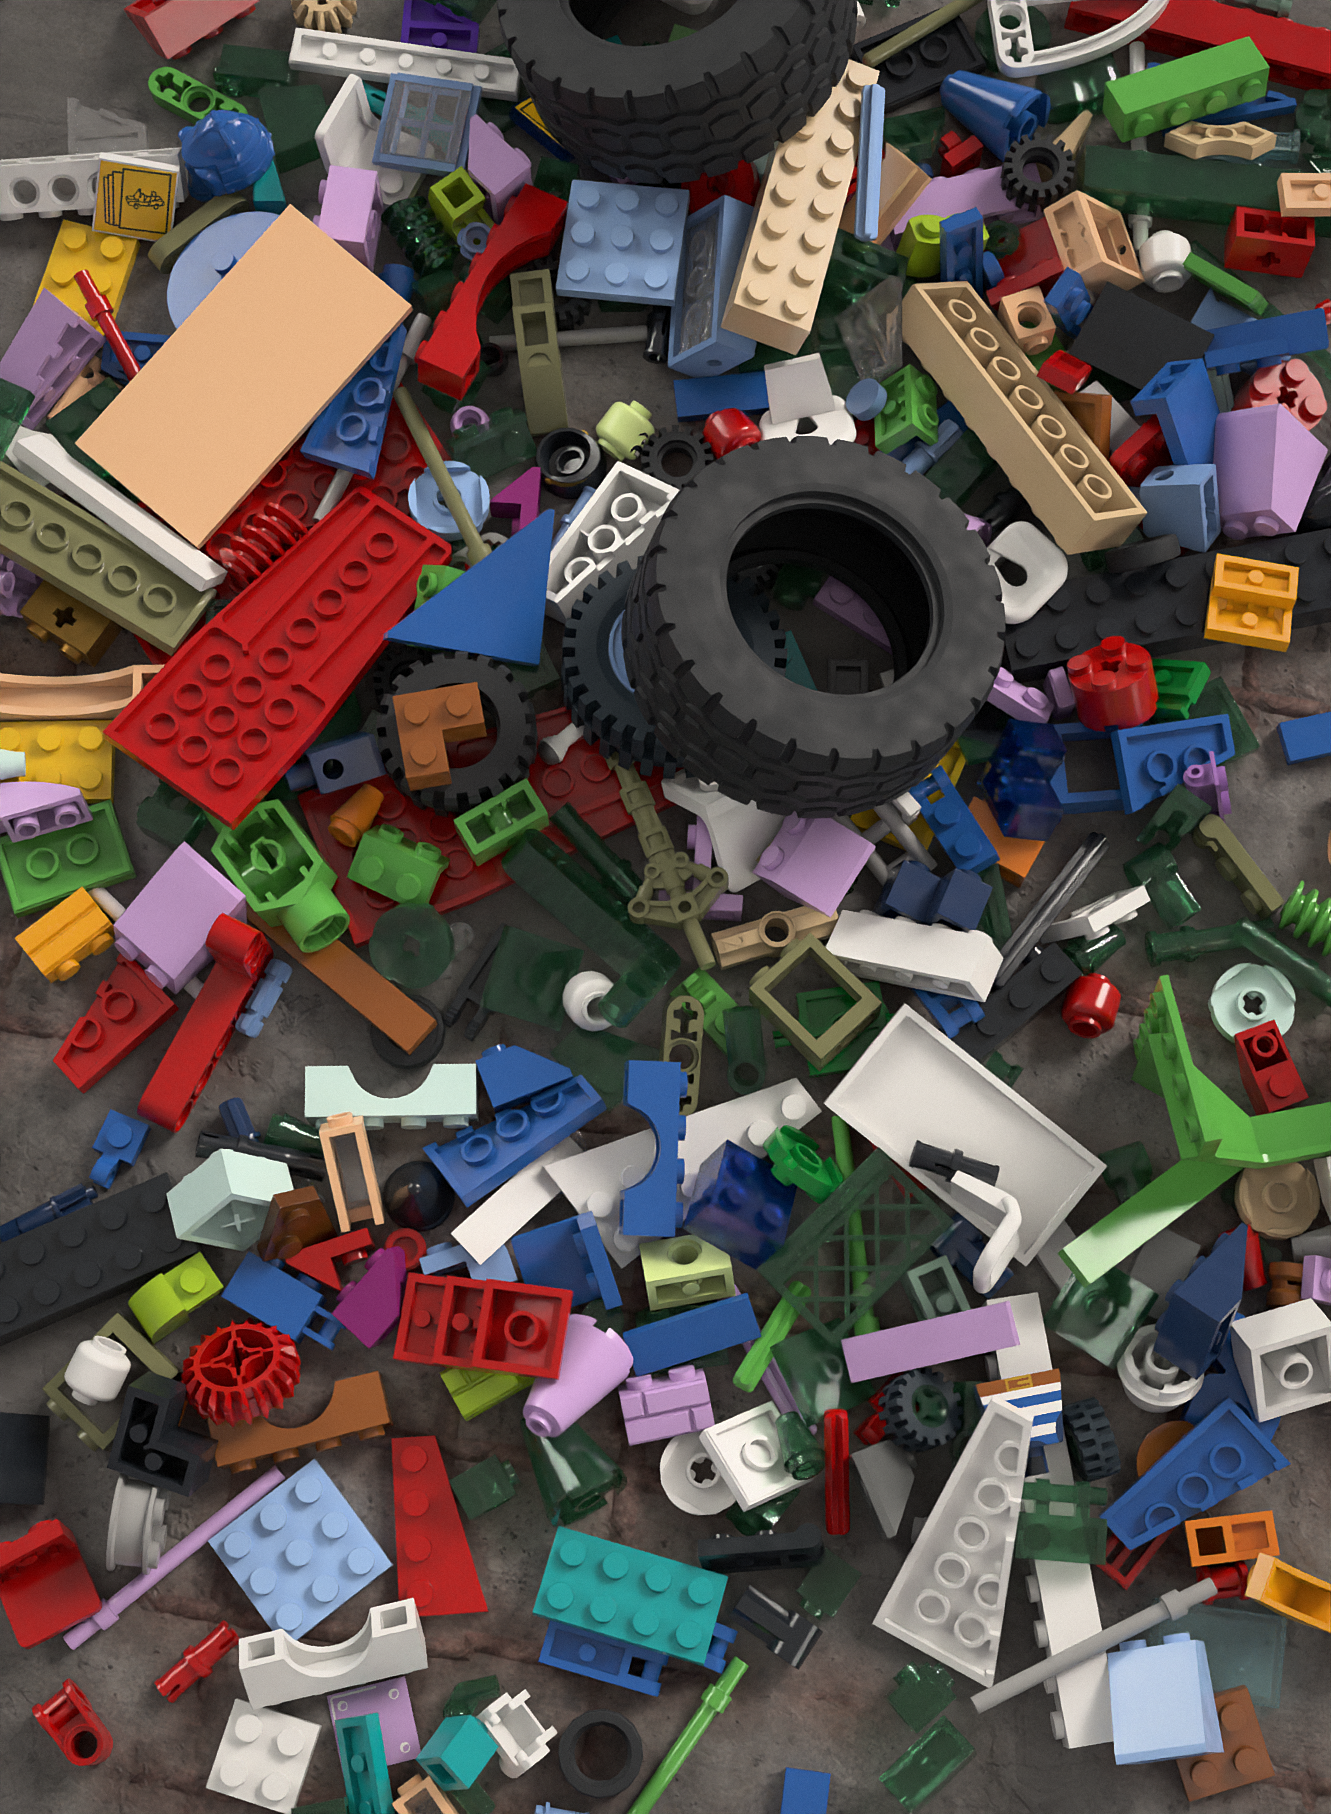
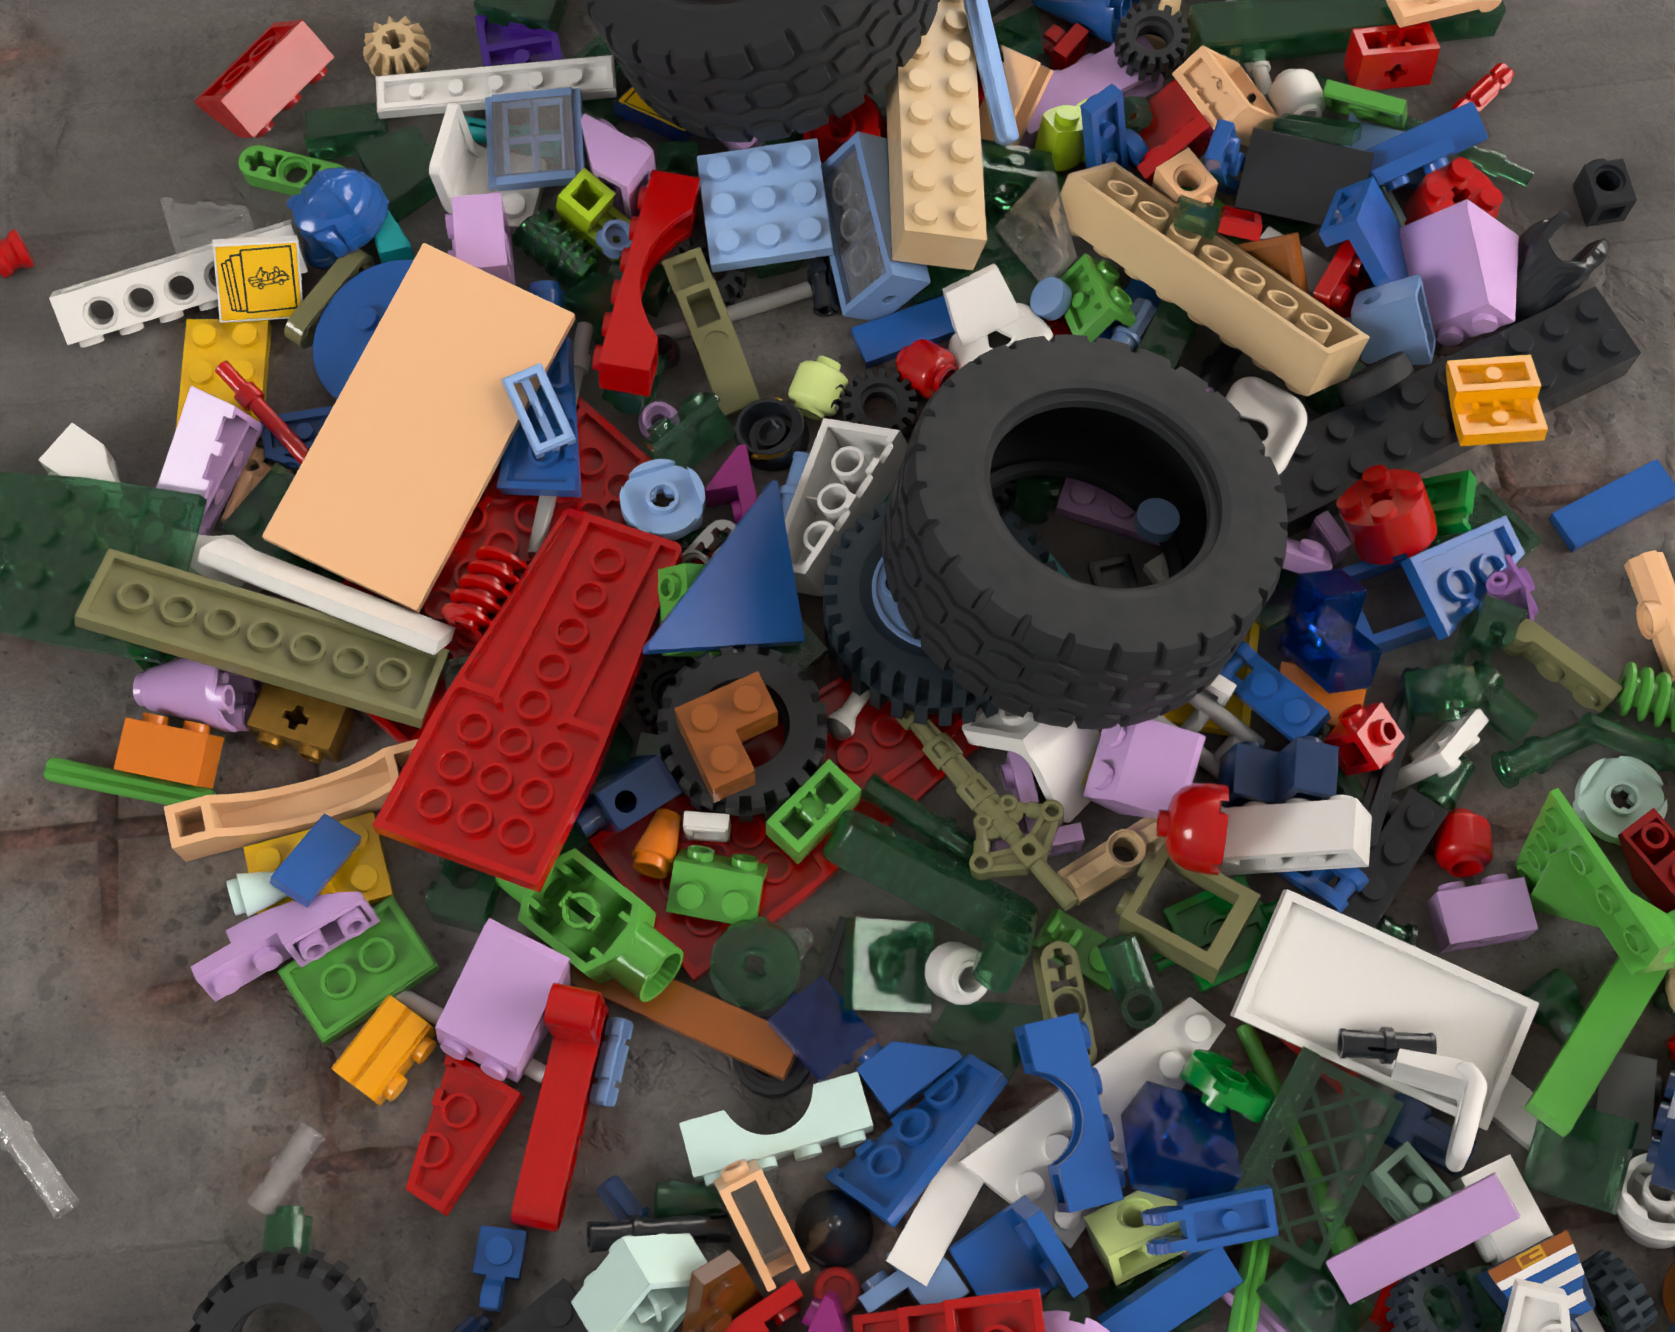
camera: 15 degrees left, 5 degrees down
(48, 750) = (315, 860): none -> blue tile
(359, 422) = (553, 443): none -> light blue tile
(404, 810) = (707, 826): none -> white tile
(450, 494) = (708, 541): olive bar -> none
(453, 1017) = (820, 1029): none -> clear blue piece
(749, 1276) = (1215, 1221): none -> blue hinge
(836, 925) = (1195, 827): none -> red cylinder
(894, 635) = (1156, 520): none -> medium blue tile
(1023, 355) = (1196, 217): none -> clear green tile
(1023, 886) = (1365, 738): none -> red brick
(1087, 1073) = (1481, 914): none -> lavender brick
(1113, 862) = (1442, 692): none -> clear green brick
(1171, 297) = (1318, 128): none -> clear green tile

